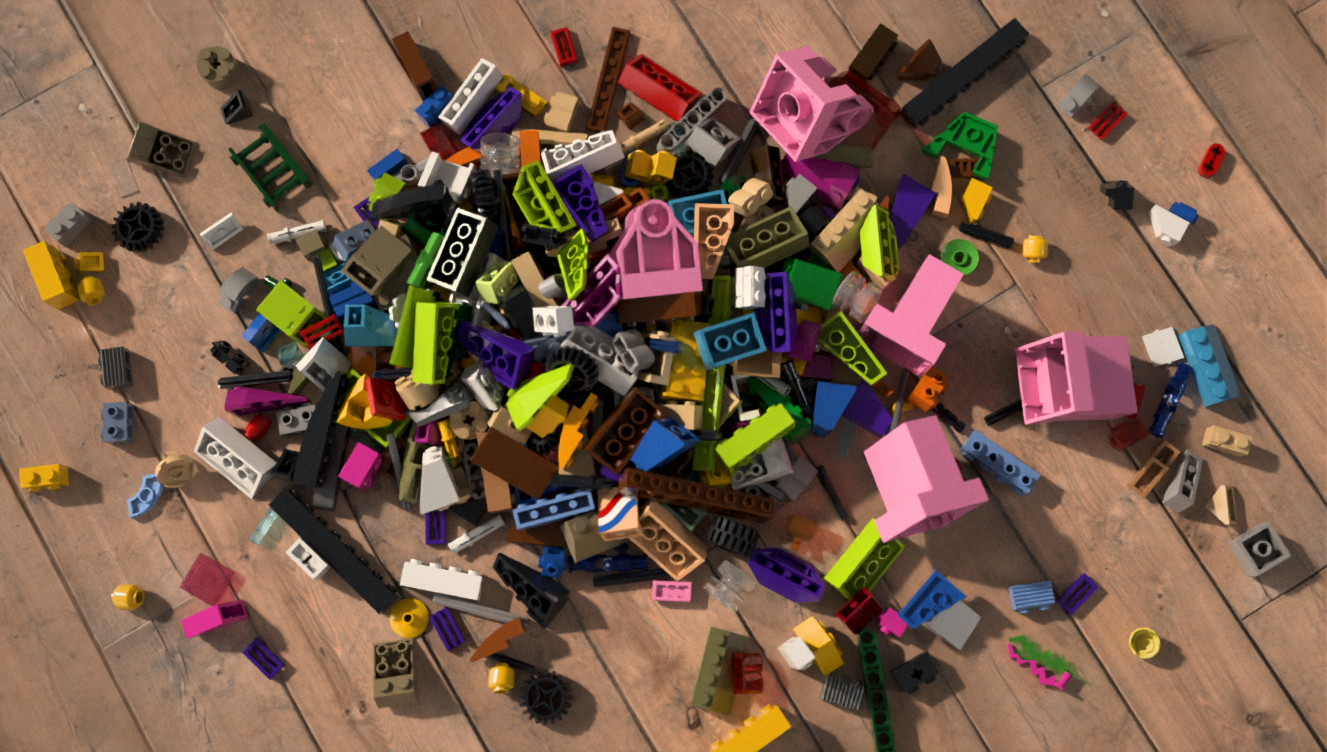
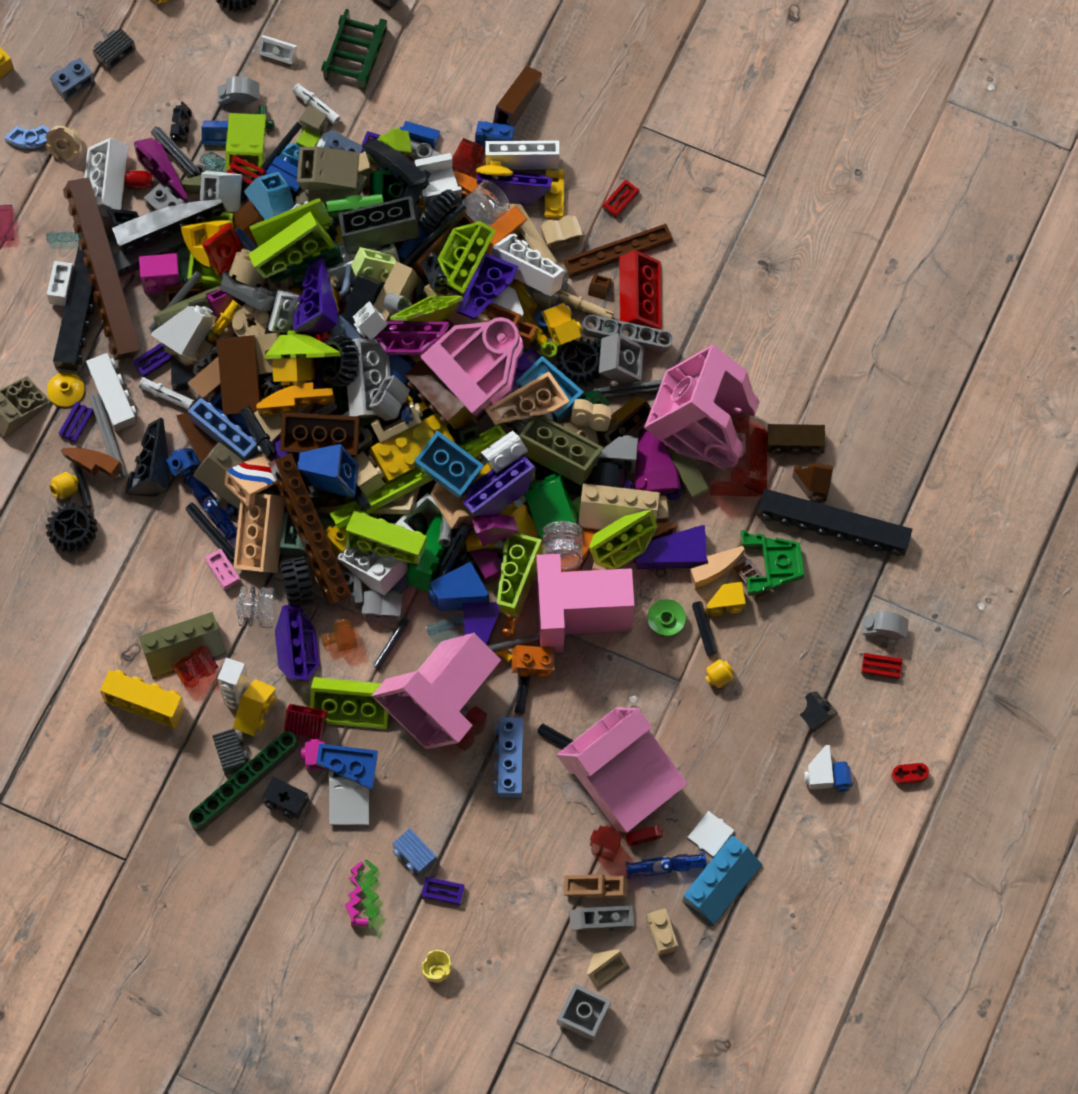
camera: 55 degrees right, 10 degrees down
(321, 515) = (101, 269): none -> reddish brown brick
(470, 127) = (494, 169): none -> yellow dish

